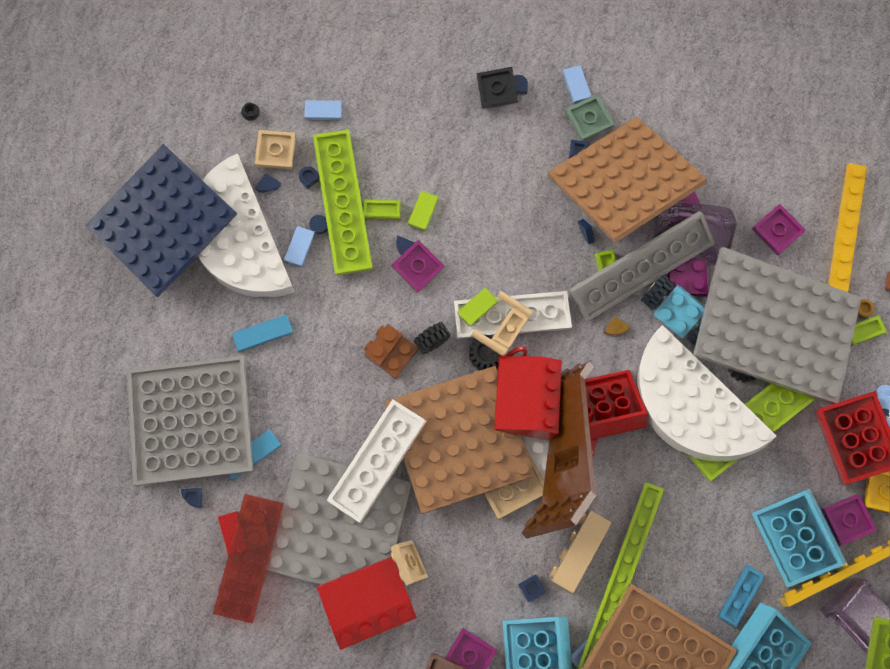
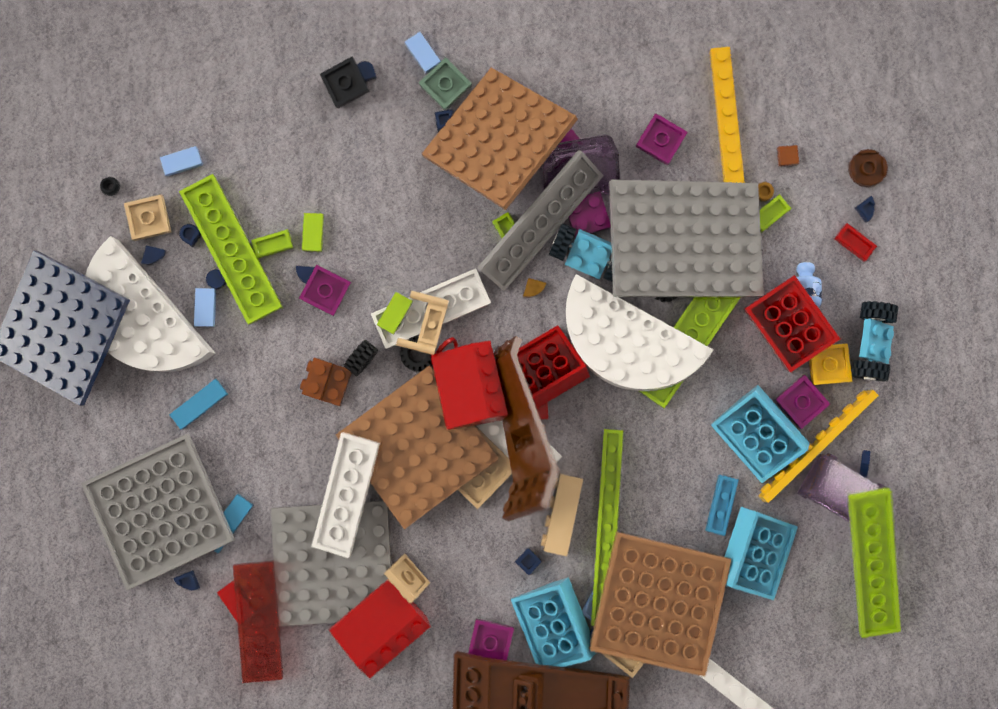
camera: 15 degrees left, 10 degrees up
(586, 230) = (477, 201): dark blue tile -> none

